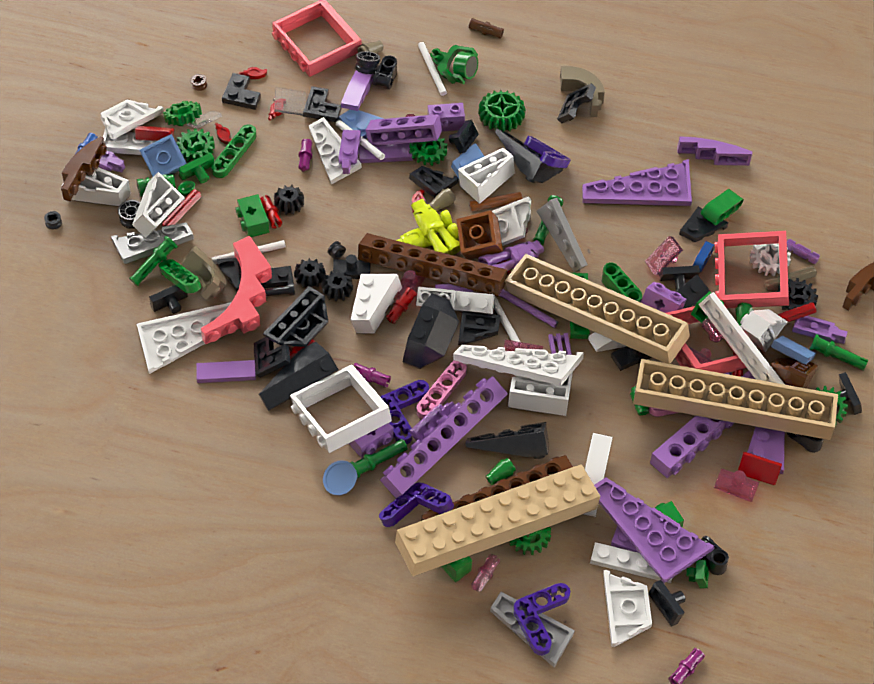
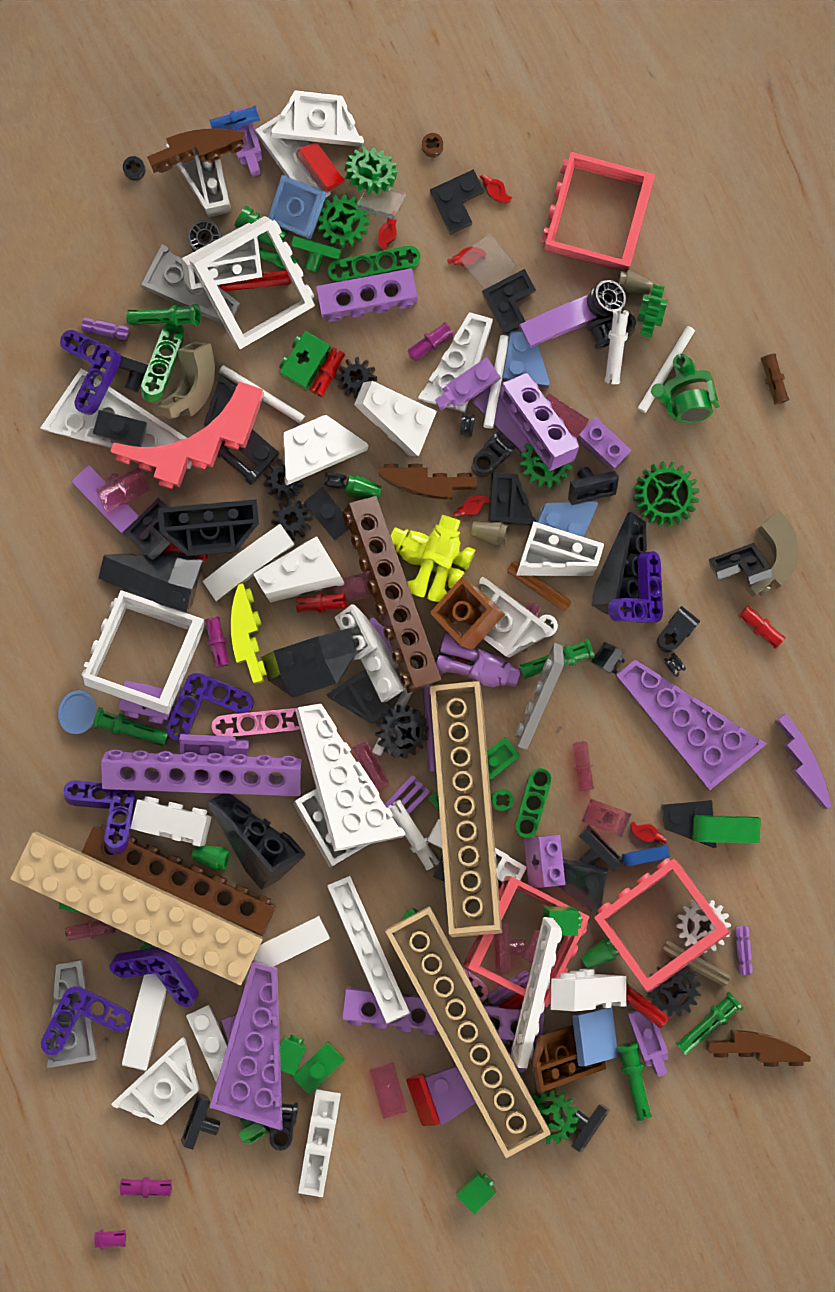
camera: 55 degrees right, 30 degrees up
(126, 299) = (105, 329): none -> medium lavender axle
(145, 309) = (98, 360): none -> dark purple beam
(175, 217) = (232, 242): none -> white window
(191, 327) = (120, 428): none -> black tile
(230, 352) = (122, 489): none -> clear pink tile
(247, 163) = (377, 285): none -> medium lavender brick
(309, 242) = (317, 447): none -> white wing
(331, 190) = (397, 415): none -> white wedge
(340, 322) = (247, 562): none -> white slope
(352, 241) = (361, 488): none -> green cone
(370, 169) = (467, 424): none -> black bush
(375, 354) = (243, 624): none -> neon yellow slope
(380, 212) = (416, 481): none -> reddish brown slope
(395, 45) = (652, 310): none -> green gear
(398, 72) = (617, 338): none -> white pin
(399, 172) = (495, 452): none -> black piece
(463, 470) = (171, 821): none -> white wedge
(517, 318) = (392, 737): none -> black gear
(547, 541) = (163, 965): none -> dark purple beam
(565, 572) = (145, 1023): none -> white slope
(569, 196) = (607, 657): none -> black tile
(584, 157) = (679, 628): none -> black piece
(594, 359) = (413, 835): none -> white pin
(602, 170) = (674, 664): none -> black bush
(618, 120) = (761, 626): none -> red pin
(622, 251) = (583, 766): none -> clear pink axle
(637, 424) = (368, 950): none -> white plate
(690, 250) = (647, 833): none -> red piece
(690, 511) = (318, 1067): none -> green tile
(740, 546) = (319, 1143): none -> white slope
(832, 288) = (718, 1015): none -> green pin
(843, 480) = (476, 1191): none -> green brick

